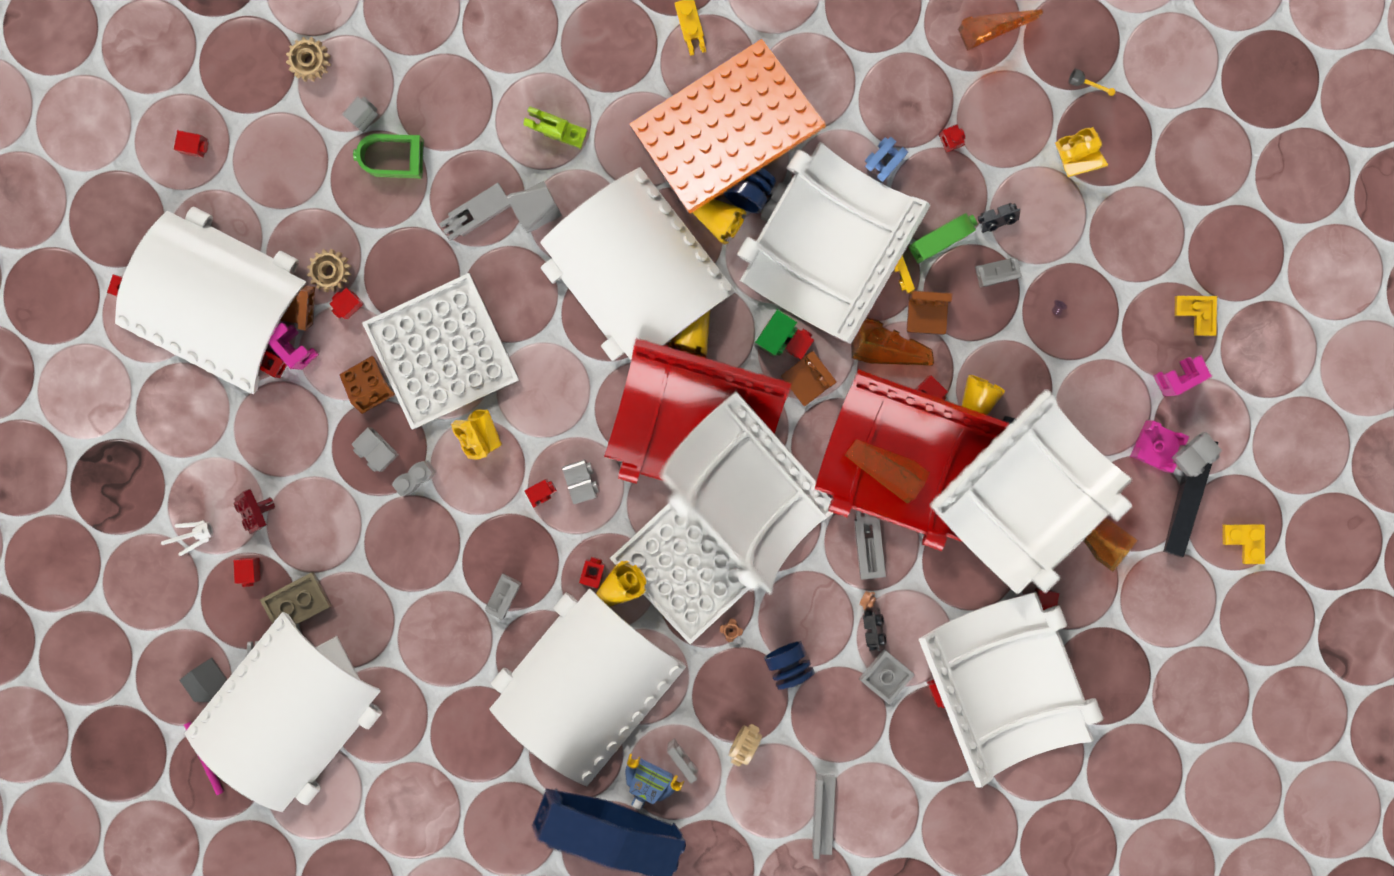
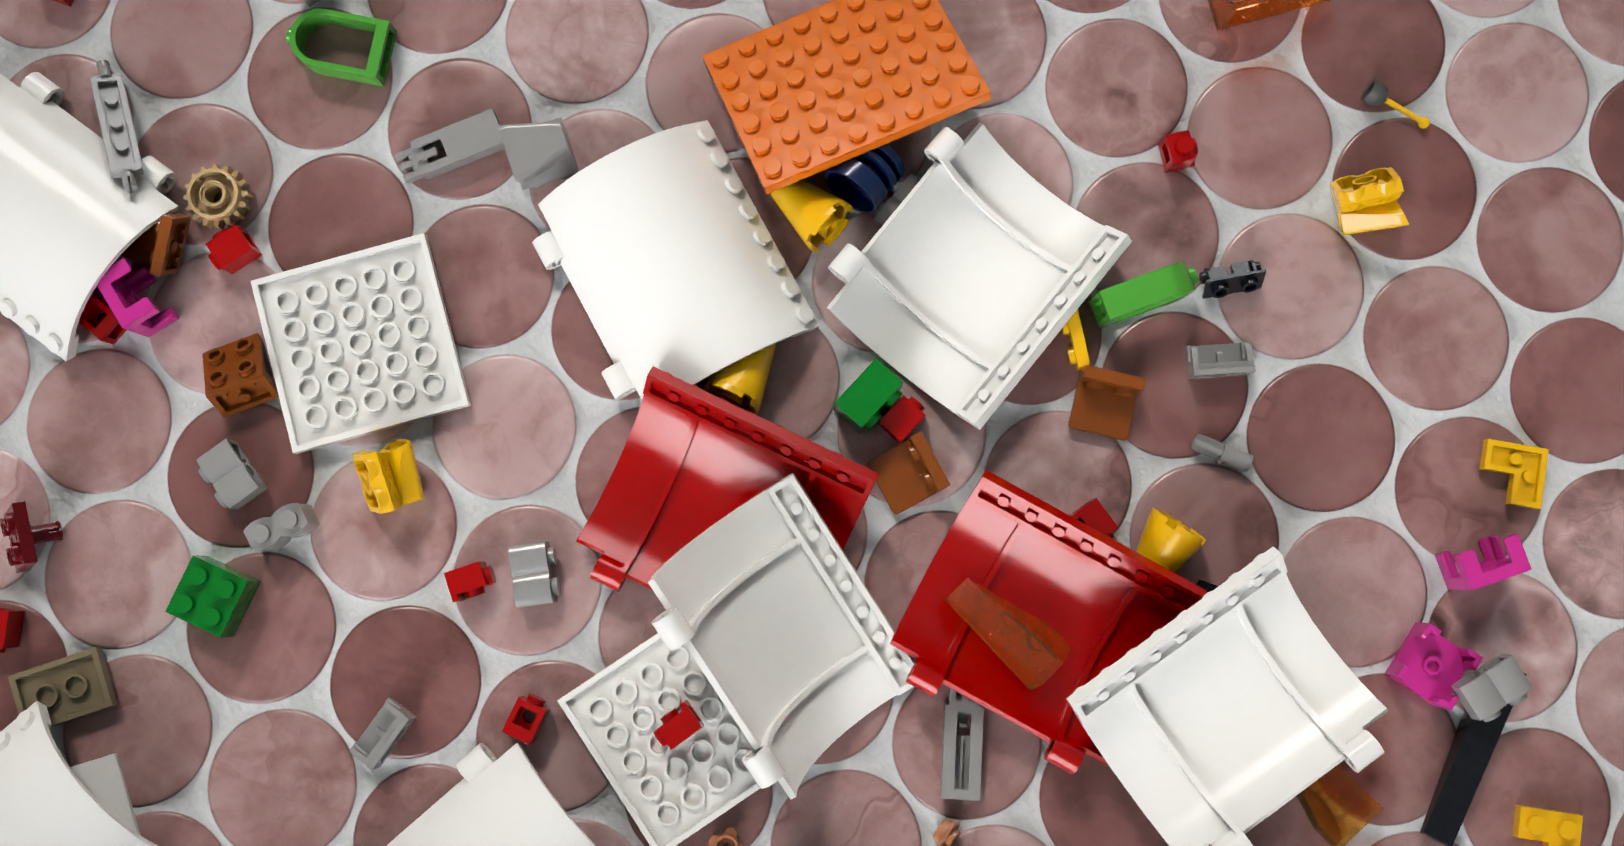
camera: 20 degrees right, 5 degrees down
(254, 235) = (116, 126): none -> light grey plate
(379, 528) = (213, 596): none -> green brick
(556, 128) = (592, 43): lime plate -> none
(622, 584) = (568, 745): yellow cone -> none
(689, 561) = (678, 725): none -> red brick
(881, 346) = (1025, 442): clear orange wedge -> none
(885, 146) = (1077, 148): medium blue brick -> none
(1008, 332) = (1222, 452): none -> light grey axle
(1058, 307) = (1304, 428): piece -> none

